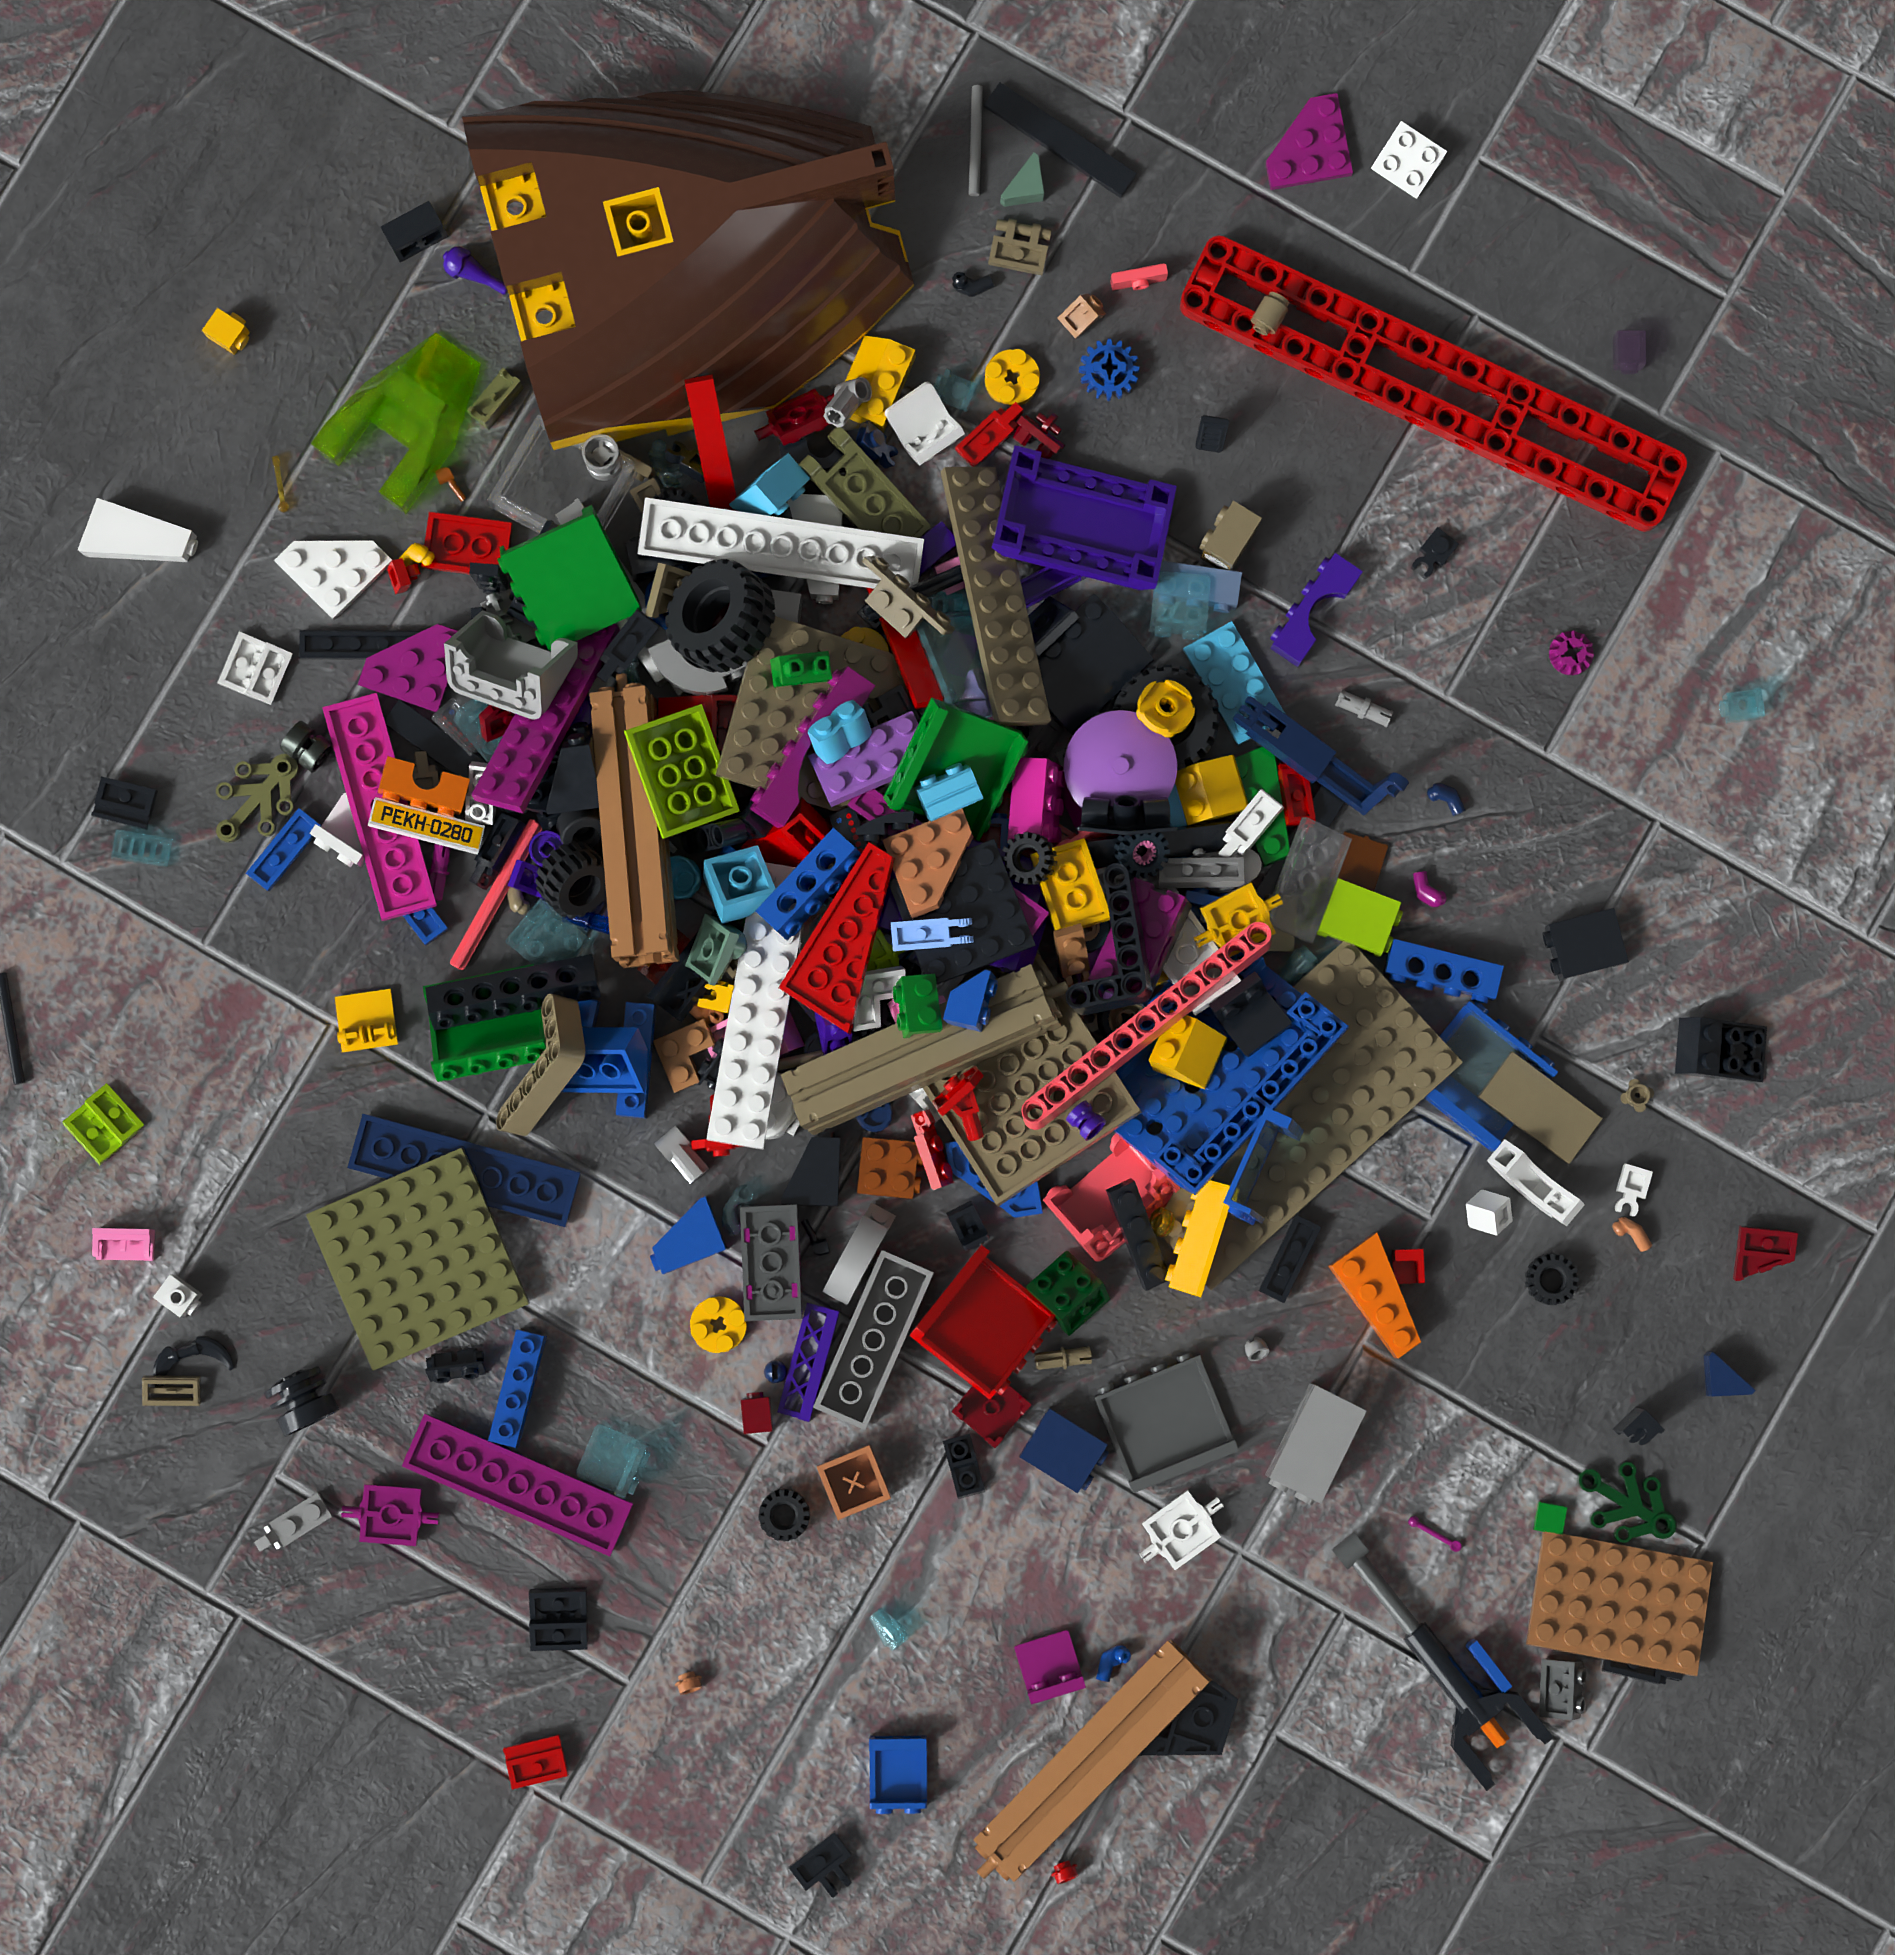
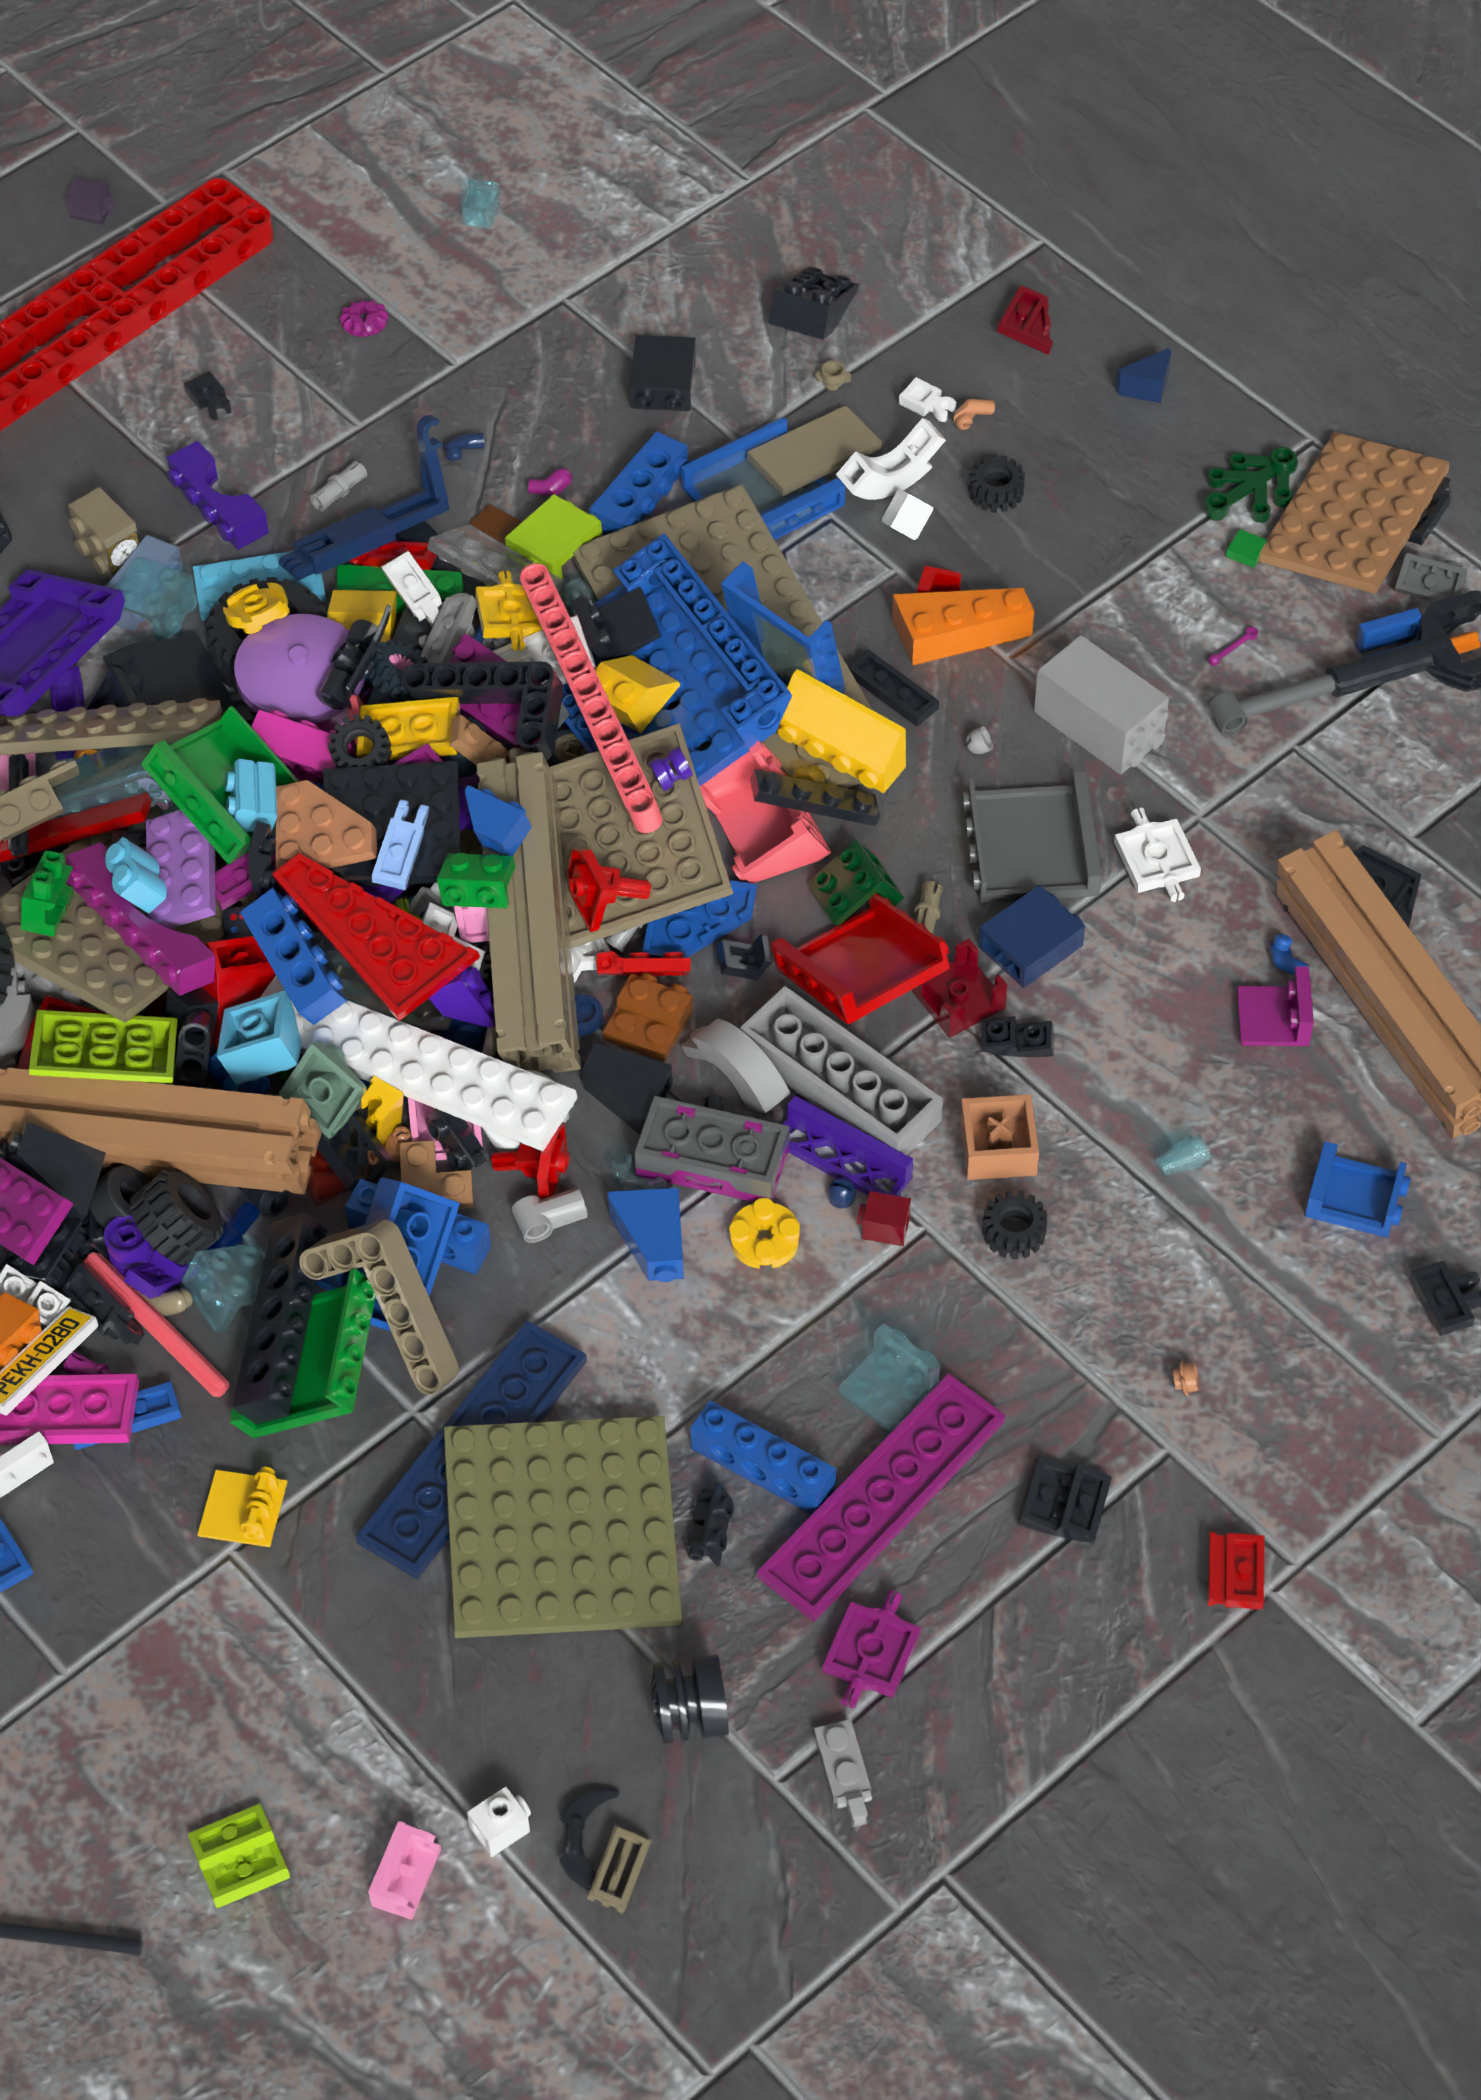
camera: 70 degrees left, 30 degrees down
(1639, 1423) = (1171, 441): black hinge -> none

